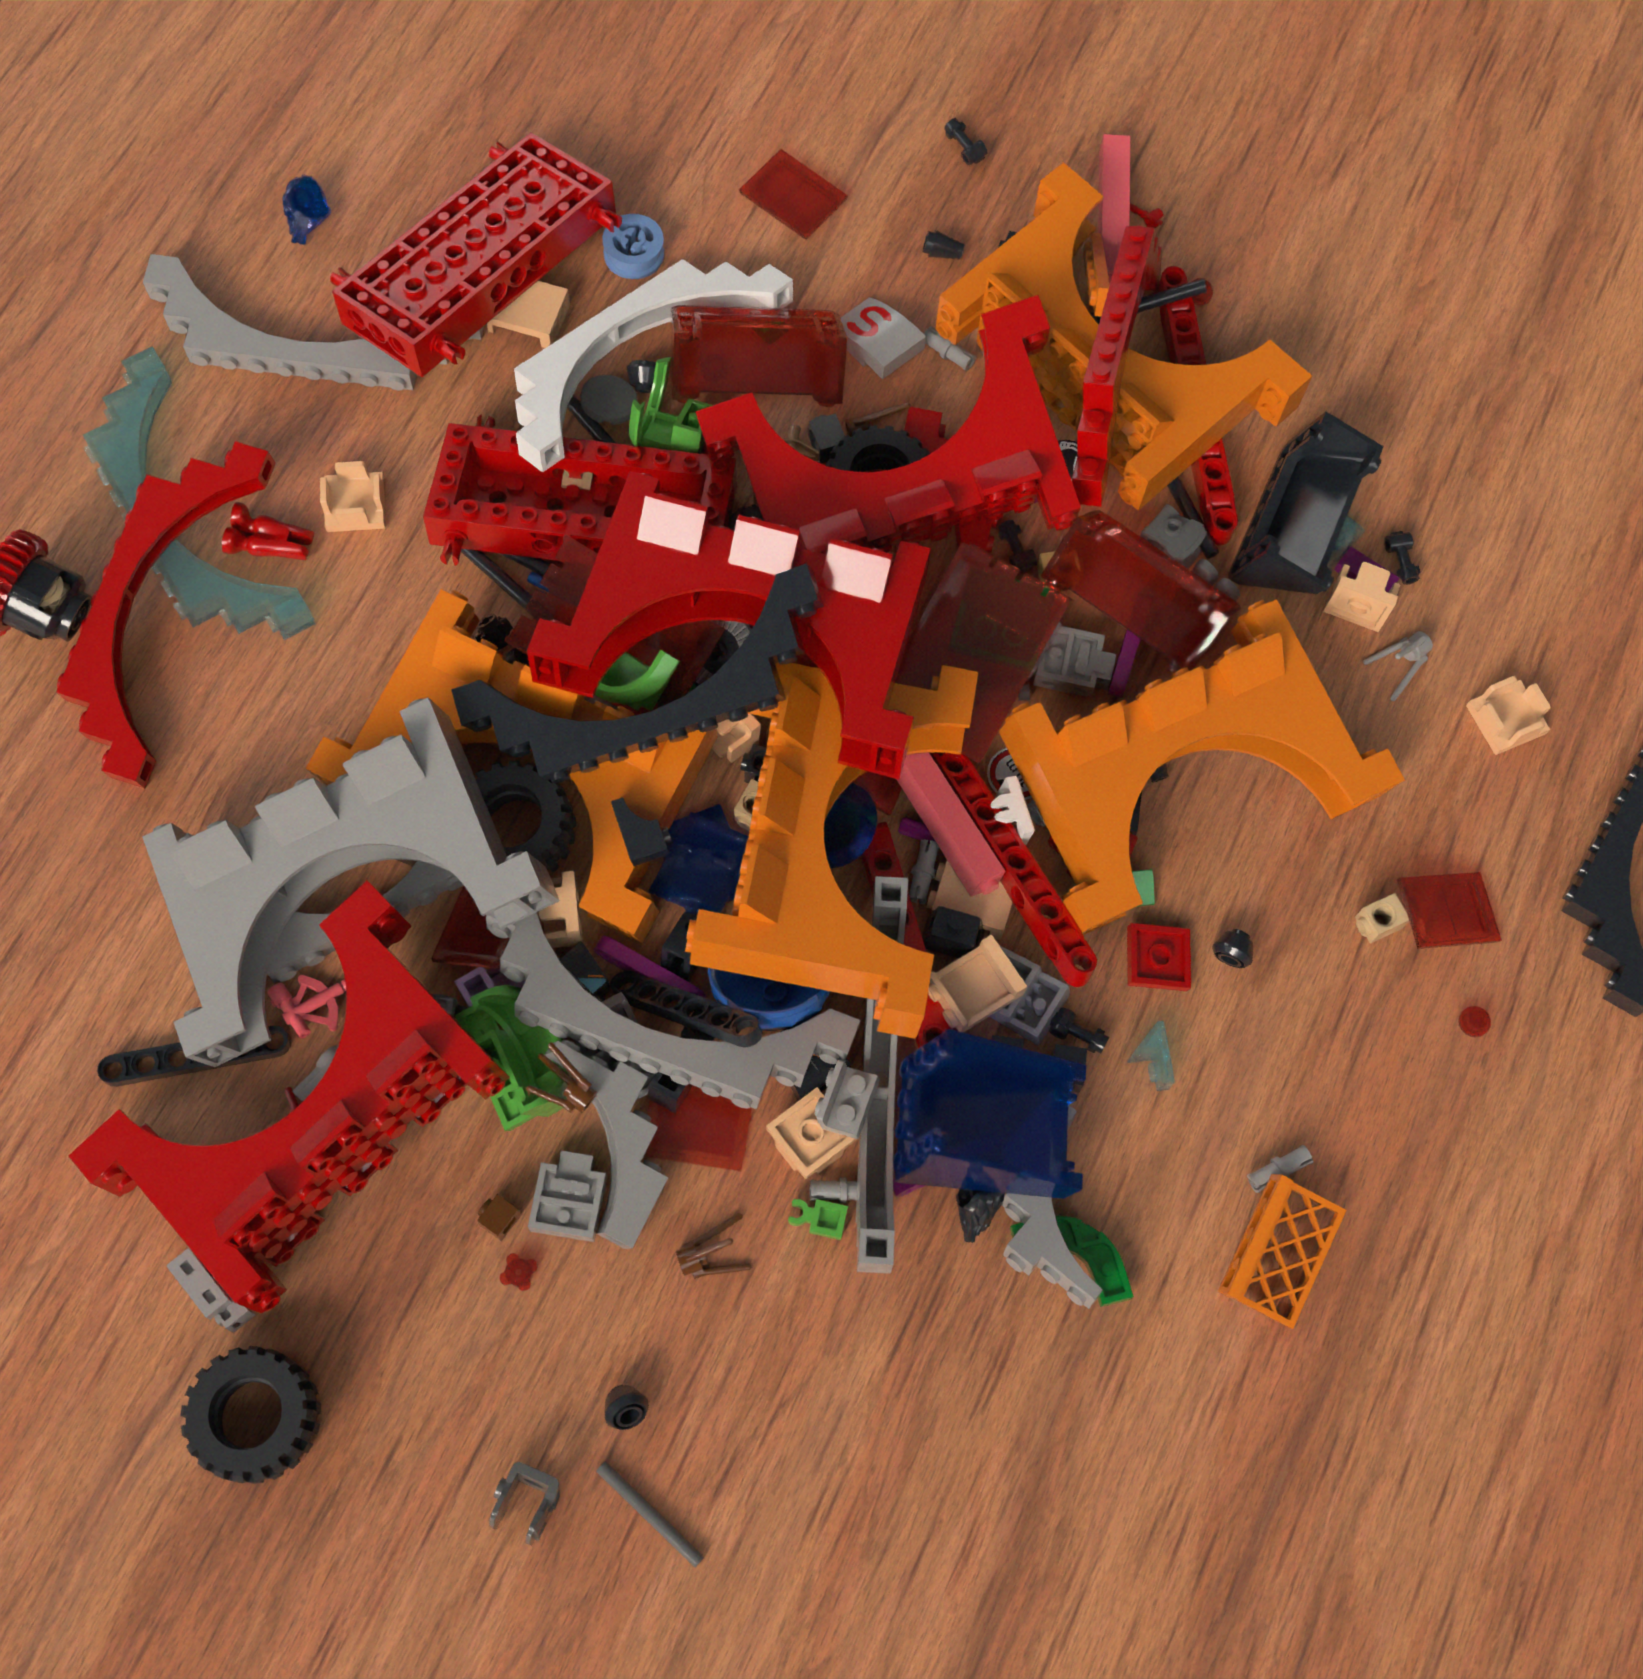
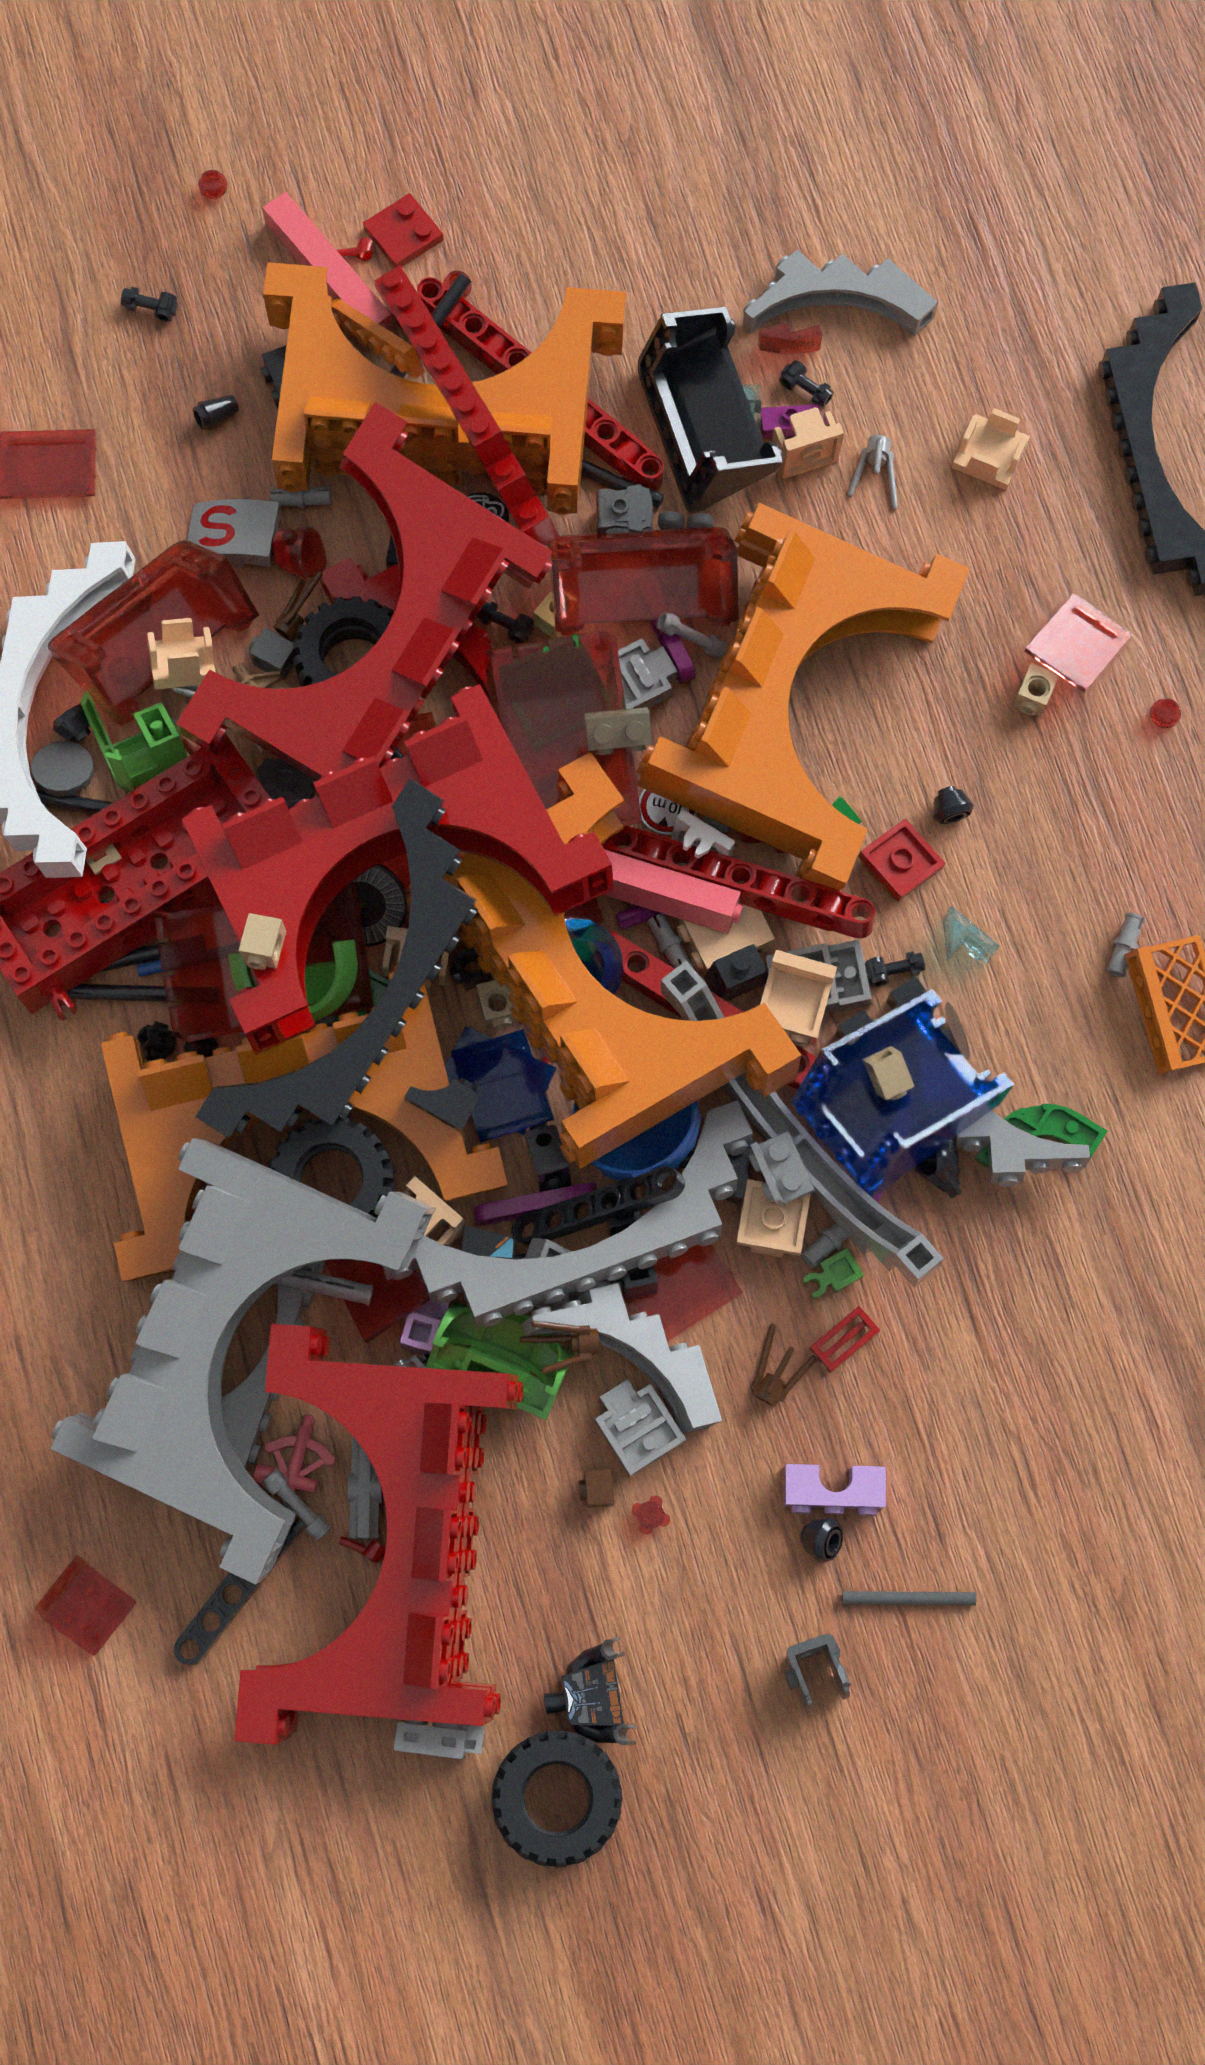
camera: 40 degrees left, 5 degrees up
(74, 976) = (84, 1605): none -> clear red bracket
(278, 1005) = (316, 1525): none -> light grey bar
(349, 1365) = (592, 1696): none -> torso
(434, 884) = (327, 1285): none -> light grey pin
(598, 595) = (262, 941): none -> tan brick
(646, 1358) = (805, 1491): none -> lavender arch
(761, 380) = (180, 656): none -> light nougat panel
(784, 1287) = (823, 1357): none -> red tile
(911, 381) = (300, 551): none -> clear red piece
(993, 1099) = (888, 1073): none -> tan brick
(1013, 672) = (618, 729): none -> dark tan brick
(1082, 1117) = (957, 1030): none -> sticker
(1084, 97) = (212, 184): none -> clear red plate
(1134, 641) = (671, 624): none -> light grey bar
(1194, 227) = (403, 231): none -> red plate
(1410, 510) = (781, 340): none -> clear red slope
(1465, 483) = (840, 282): none -> light grey arch

